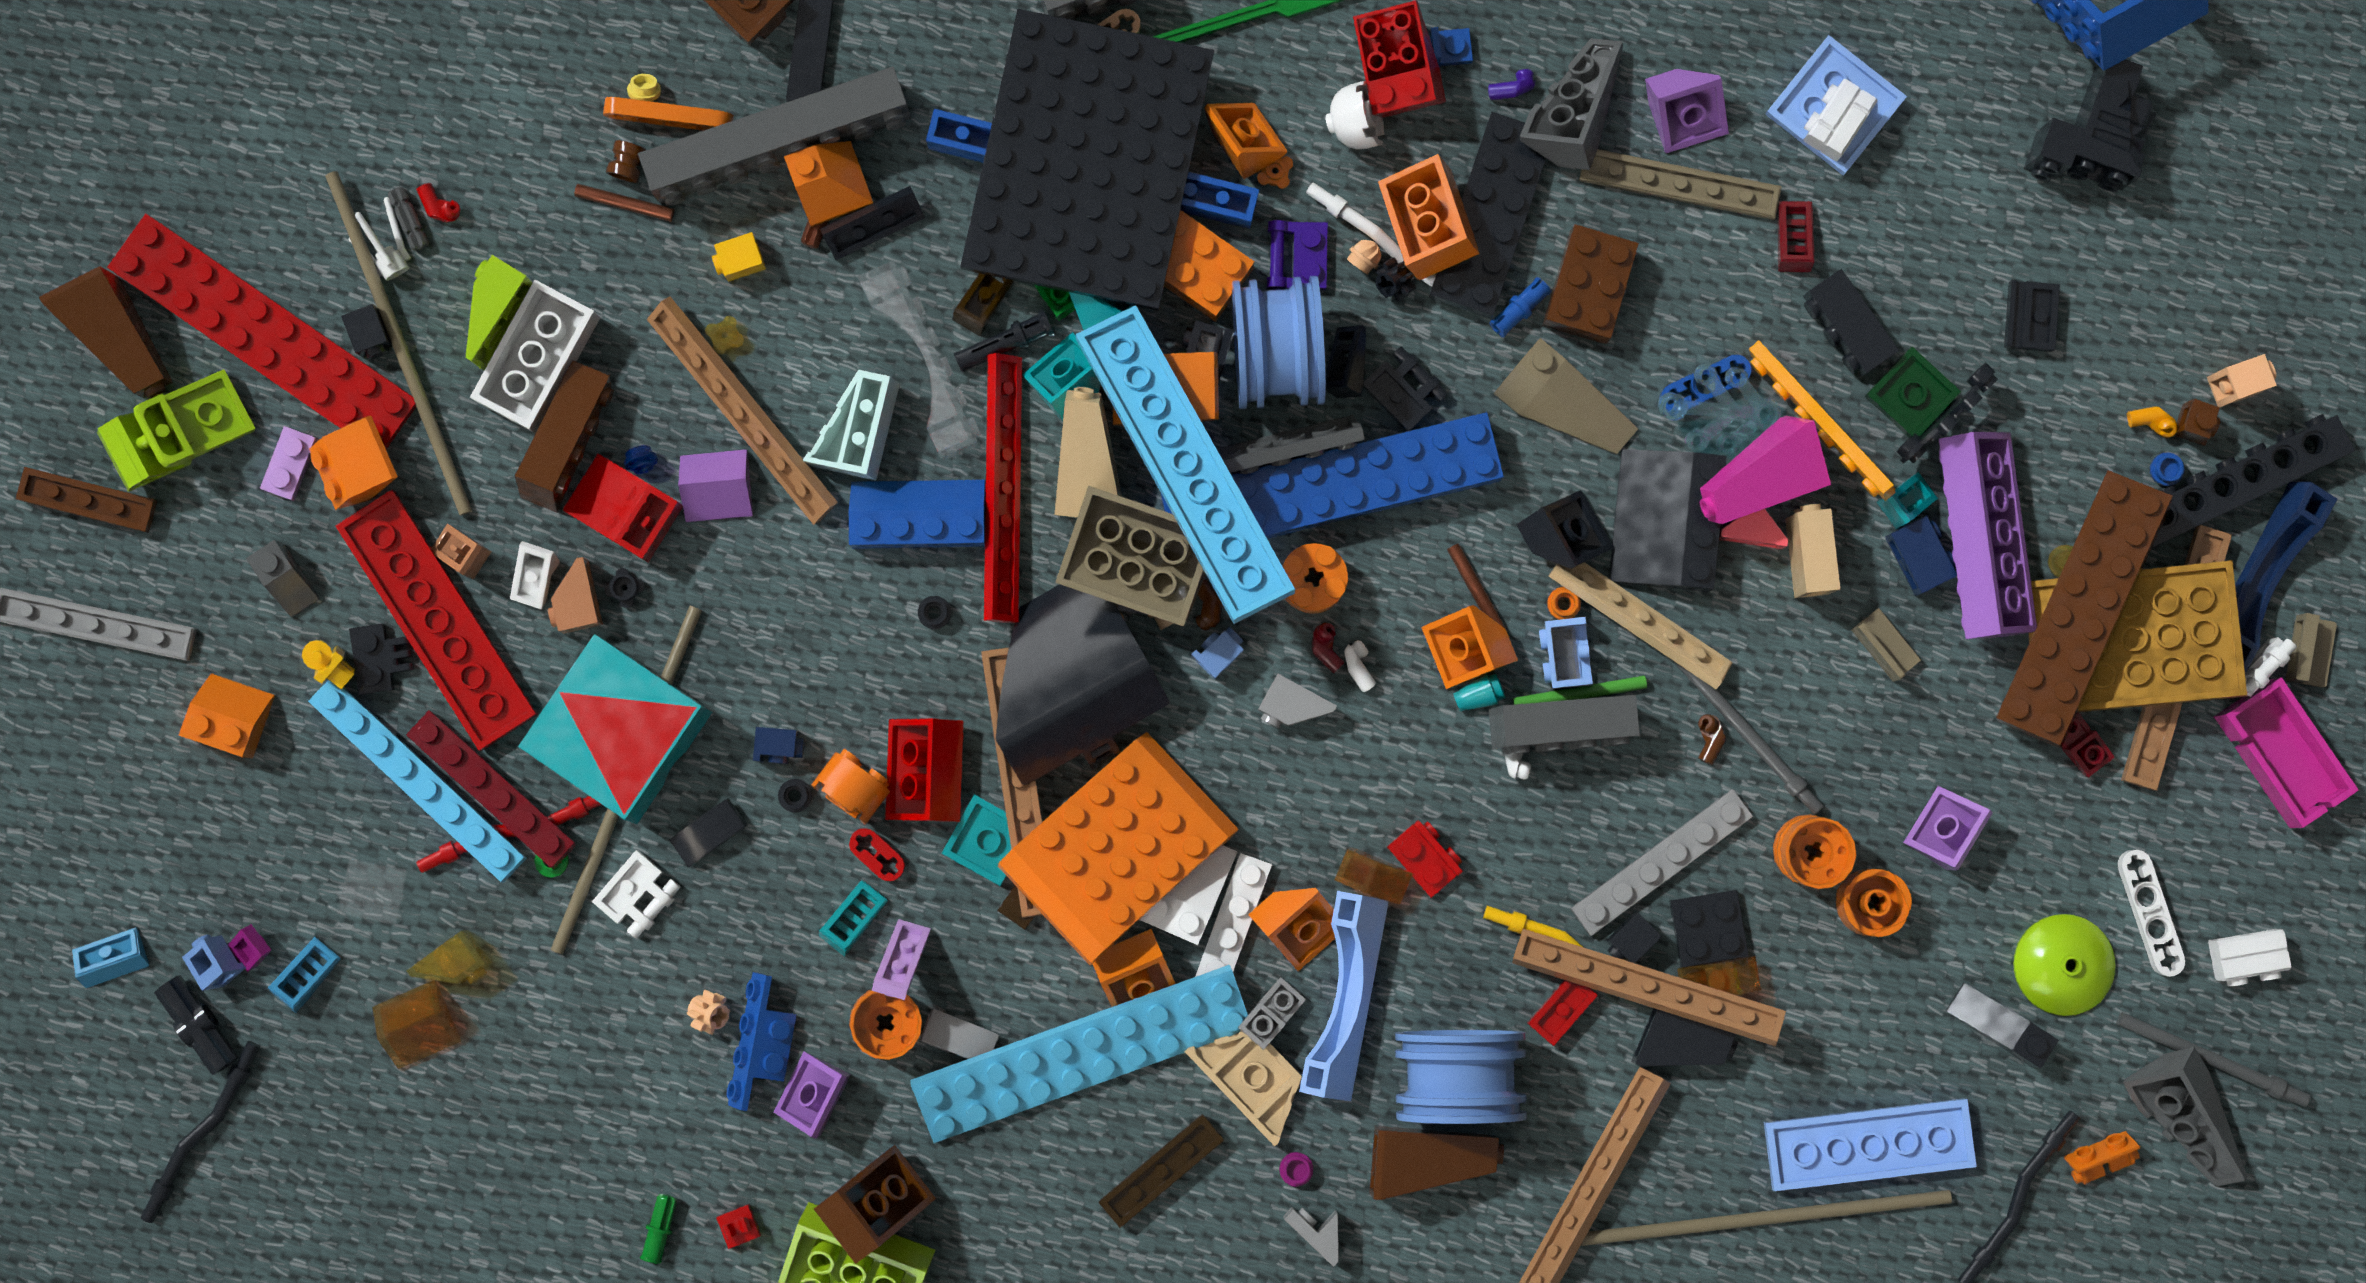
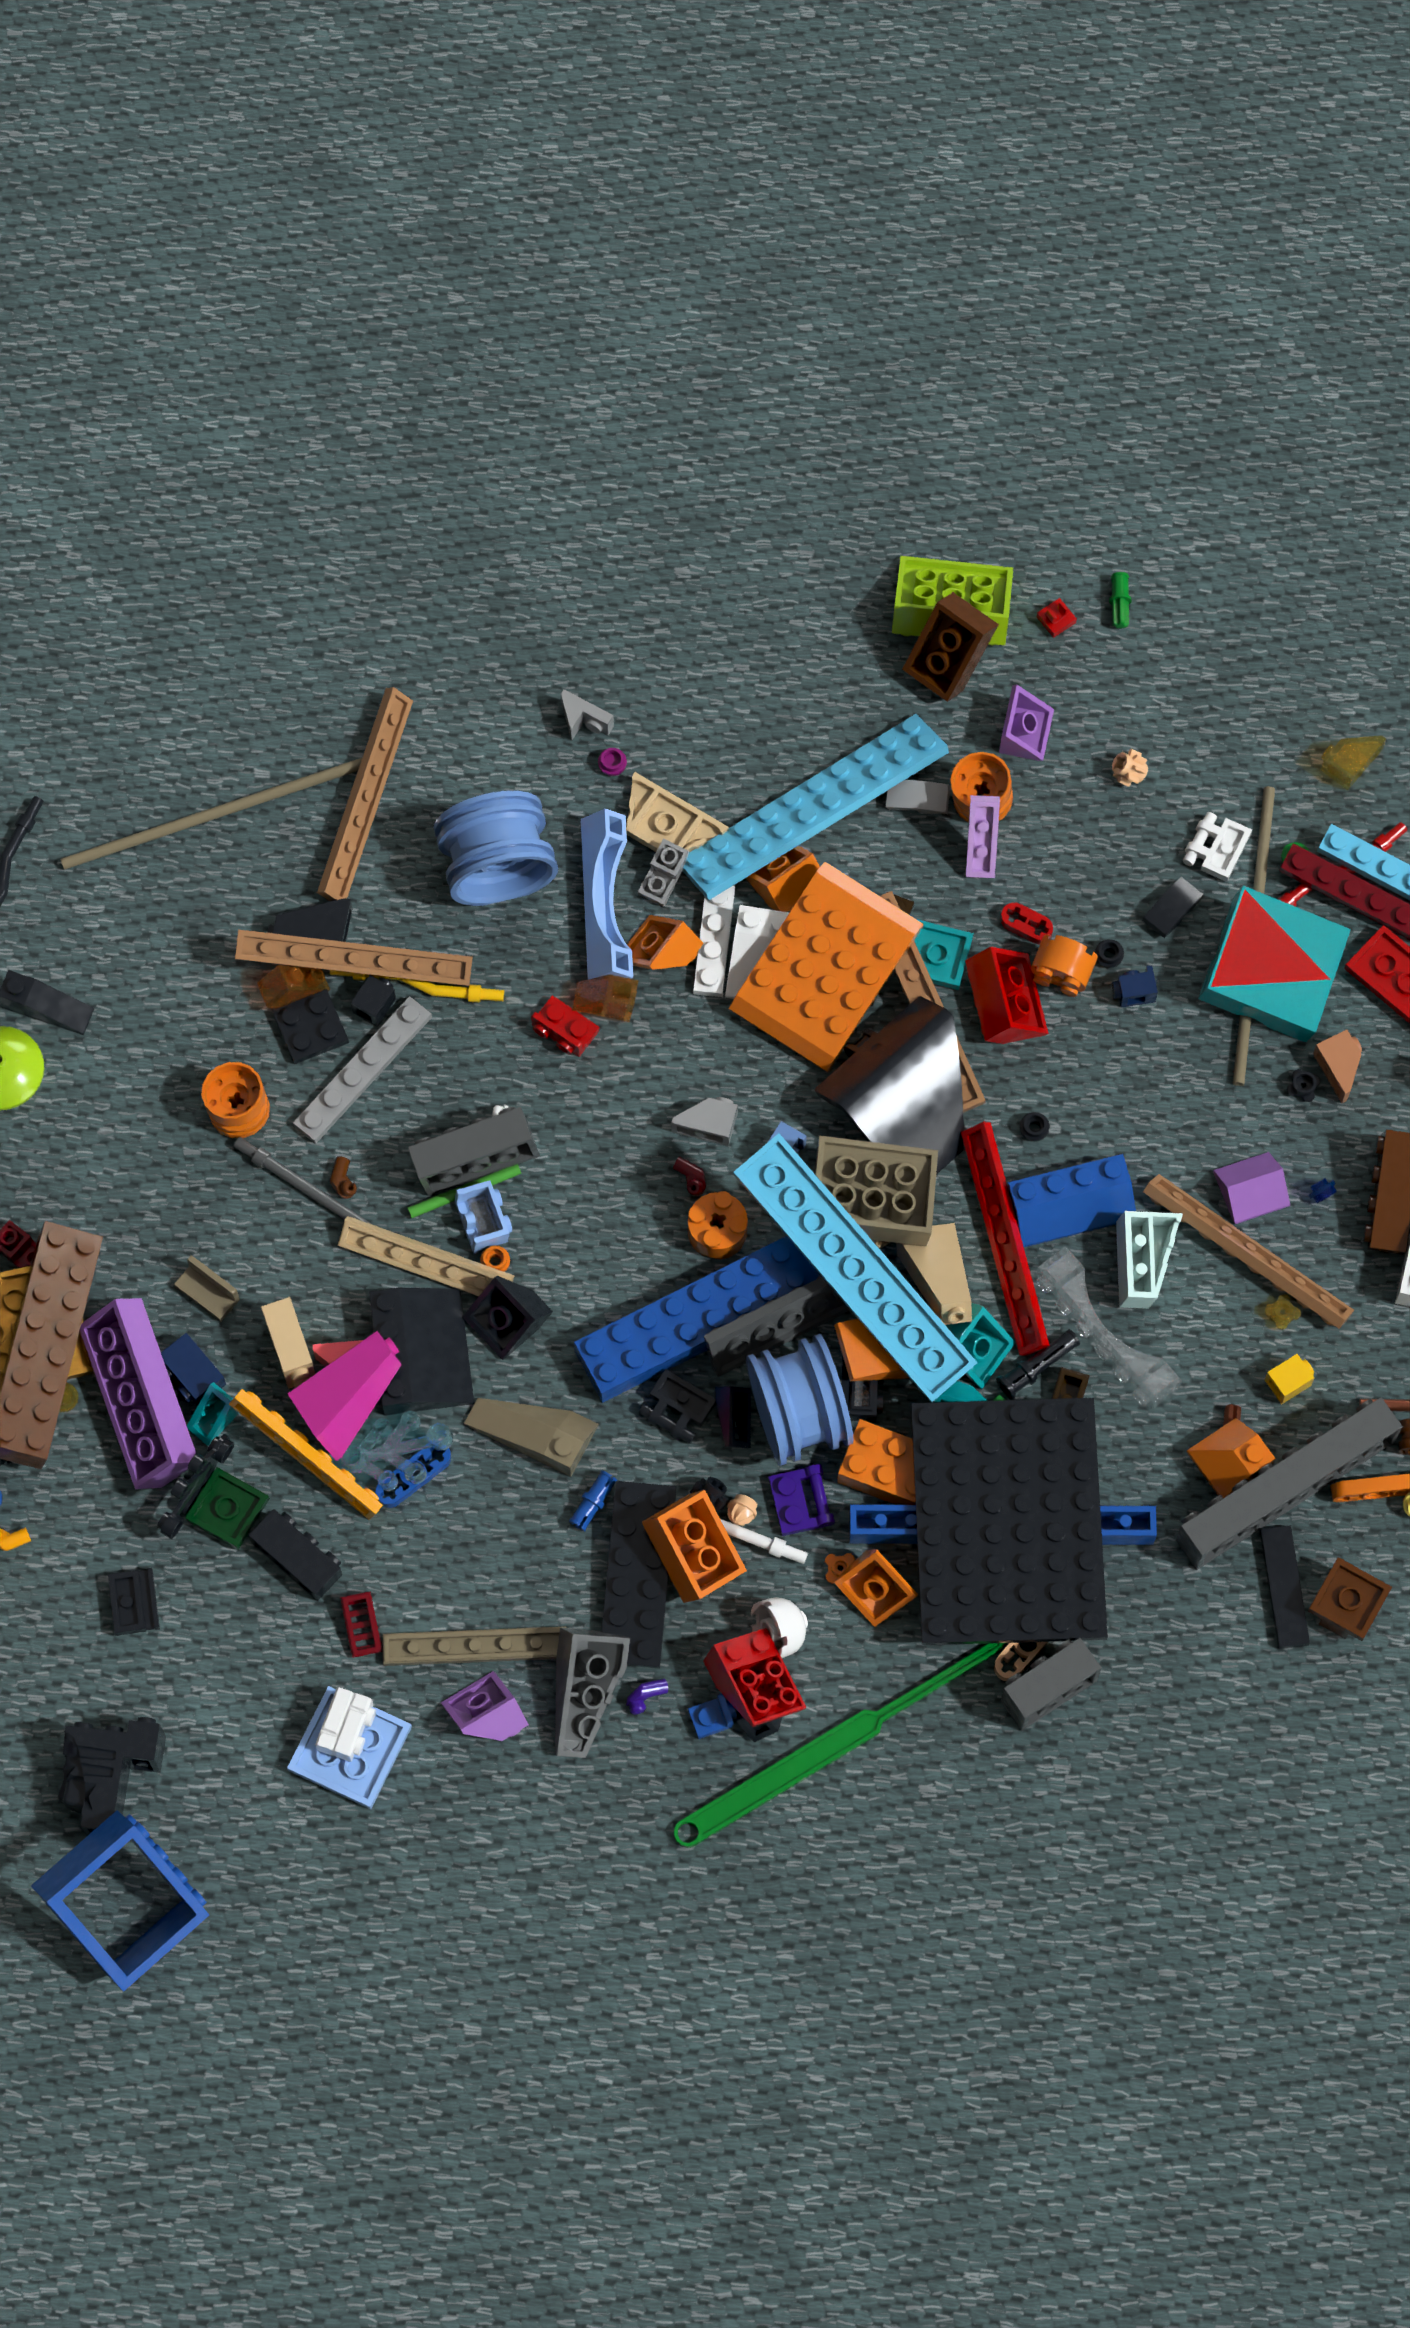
camera: 170 degrees right, 15 degrees down
(415, 1025) = (1368, 706): clear orange slope -> none
(533, 575) = (1382, 1074): white slope -> none
(623, 507) = (1325, 1145): red slope -> none
(762, 1043) = (1078, 755): blue bracket -> none
(853, 936) = (1042, 848): teal slope -> none
(872, 223) = (1182, 1435): black plate -> none
(1161, 1170) = (723, 734): dark brown plate -> none
(1356, 667) = (662, 1164): white arm -> none
(1423, 1159) = (521, 771): reddish brown slope -> none
(1468, 645) = (568, 1200): orange slope -> none
(1473, 583) = (575, 1257): copper bar -> none
(1480, 693) = (549, 1168): teal cone -> none
(1561, 1010) = (422, 928): red plate -> none
(1590, 284) = (535, 1532): reddish brown brick -> none
(1869, 1144) = (138, 887): light blue plate -> none
(1890, 911) = (172, 1088): orange brick -> none
(1947, 828) = (122, 1149): medium lavender slope -> none

